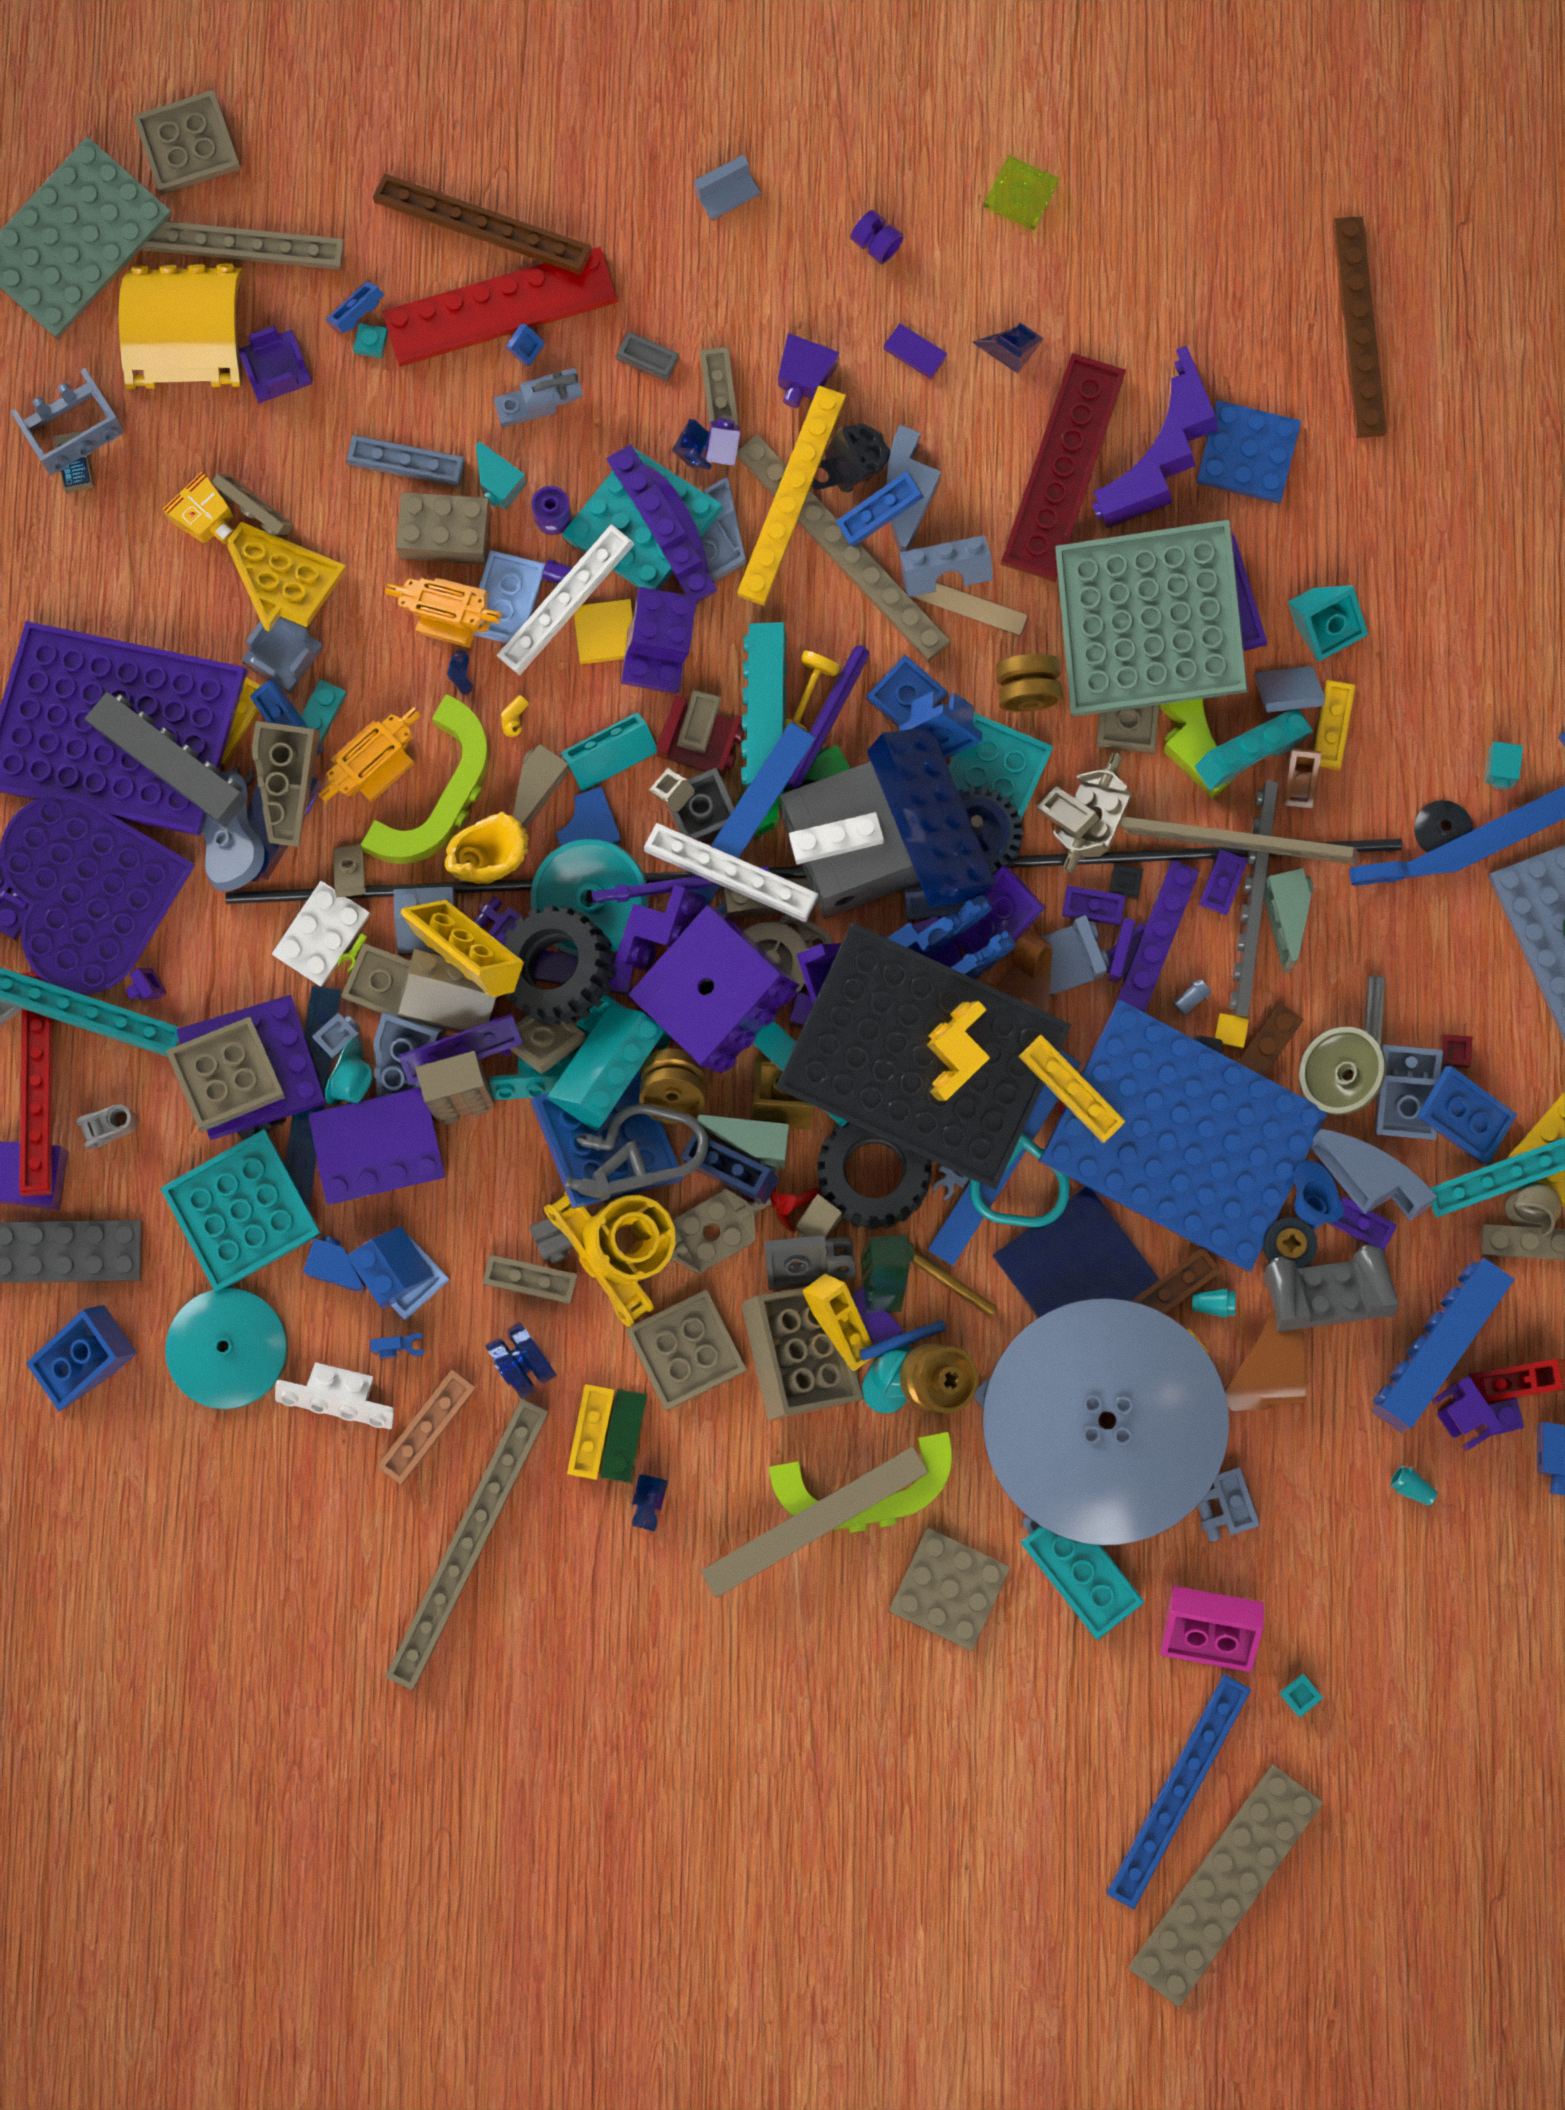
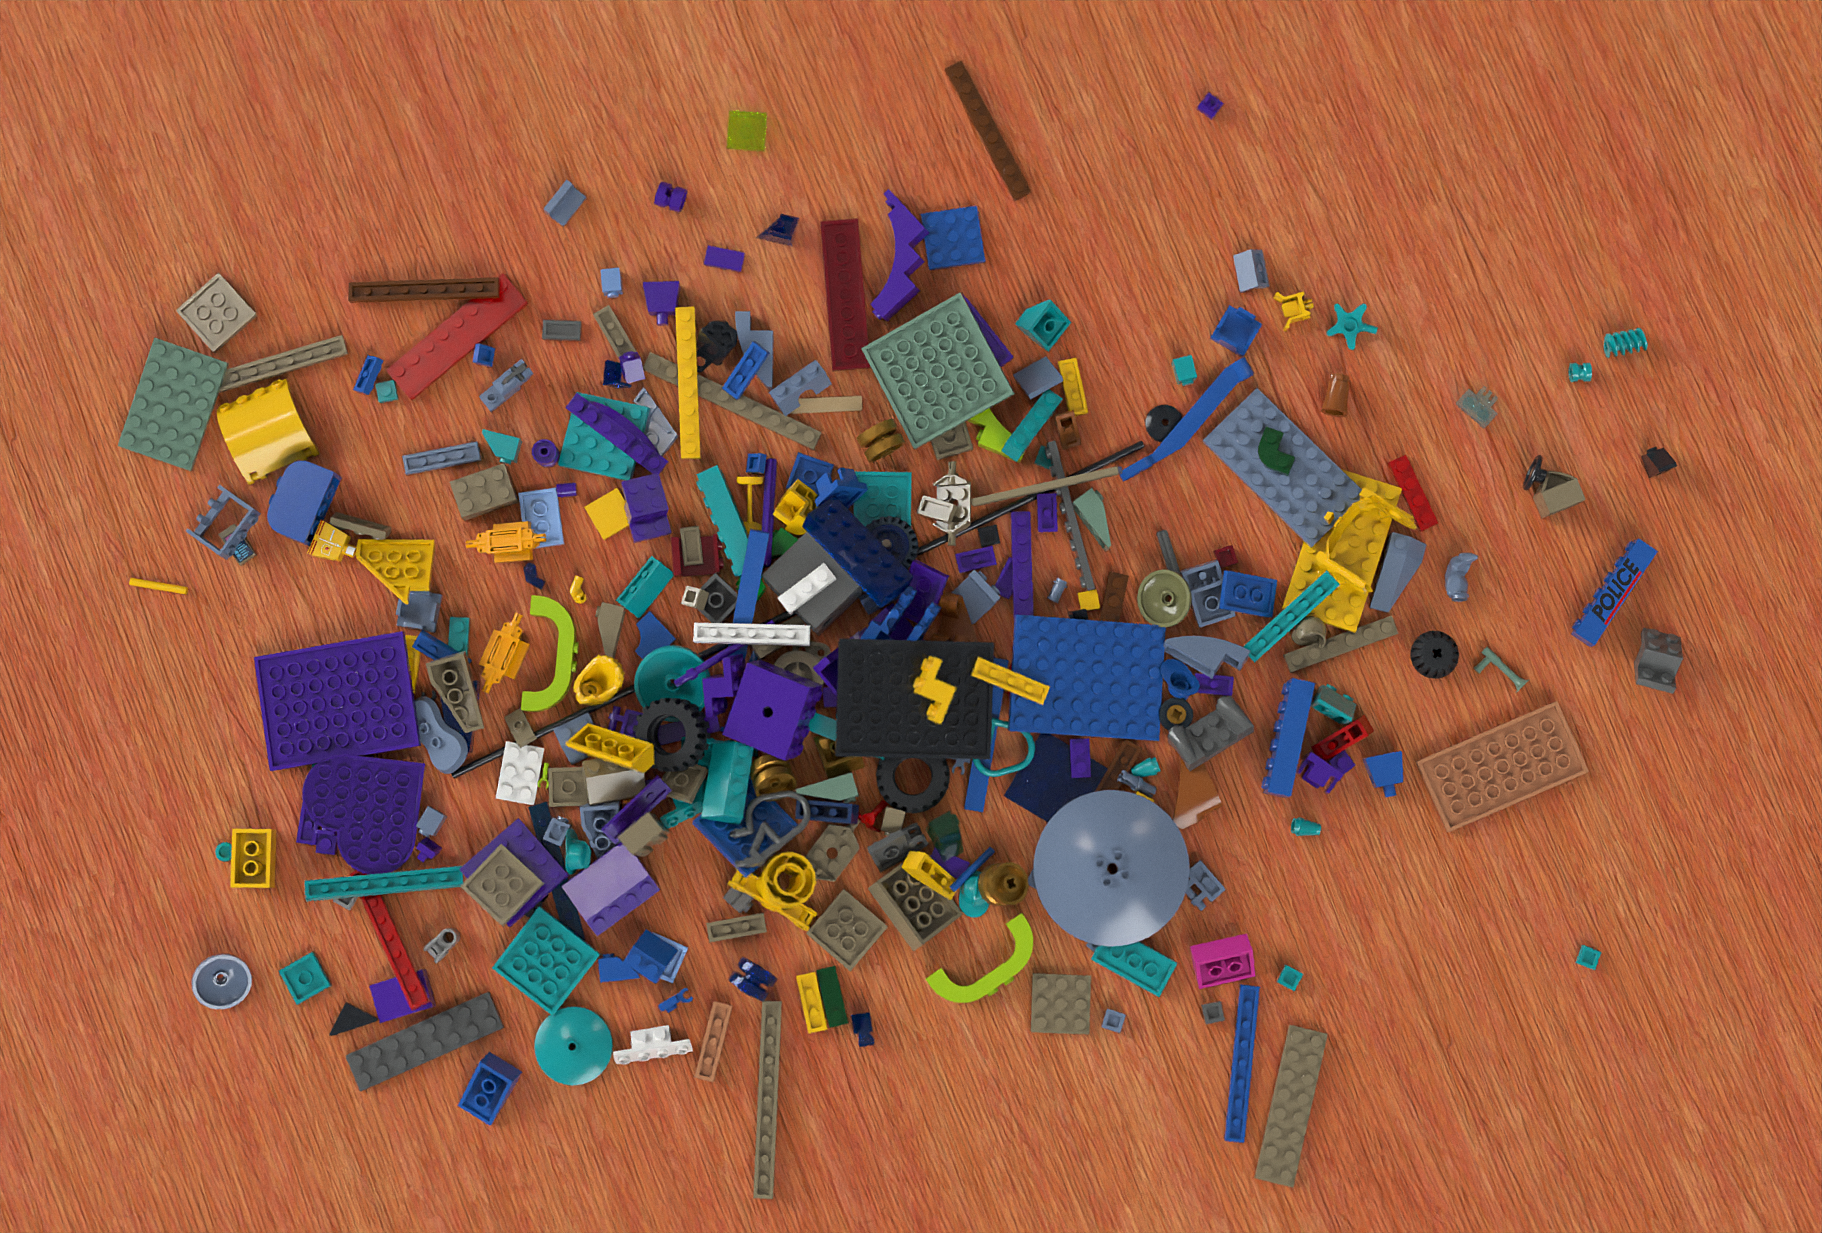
camera: 25 degrees left, 5 degrees up
(166, 759) = (379, 708): dark grey brick -> none
(167, 949) = (431, 822): none -> sand blue brick
(188, 434) = (302, 500): none -> blue brick
(274, 364) = (334, 431): dark purple panel -> none
(565, 599) = (578, 506): white tile -> none
(745, 318) = (611, 282): none -> medium blue brick
(814, 1522) = (966, 1000): dark tan tile -> none
(839, 645) = (756, 463): none -> blue plate
(866, 723) = (795, 506): none -> yellow brick
(954, 1284) = (986, 822): pearl gold bar -> none
(1015, 1646) = (1113, 1020): none -> sand blue plate
(1121, 950) = (1004, 580): dark purple tile -> none
(1125, 1246) = (1080, 758): none -> dark purple plate
(1166, 1697) = (1213, 1012): none -> dark grey plate
(1193, 1318) = (1137, 783): none -> sand blue pin
(1246, 806) = (1041, 459): none -> teal tile
(1527, 1326) = (1334, 705): none -> teal slope

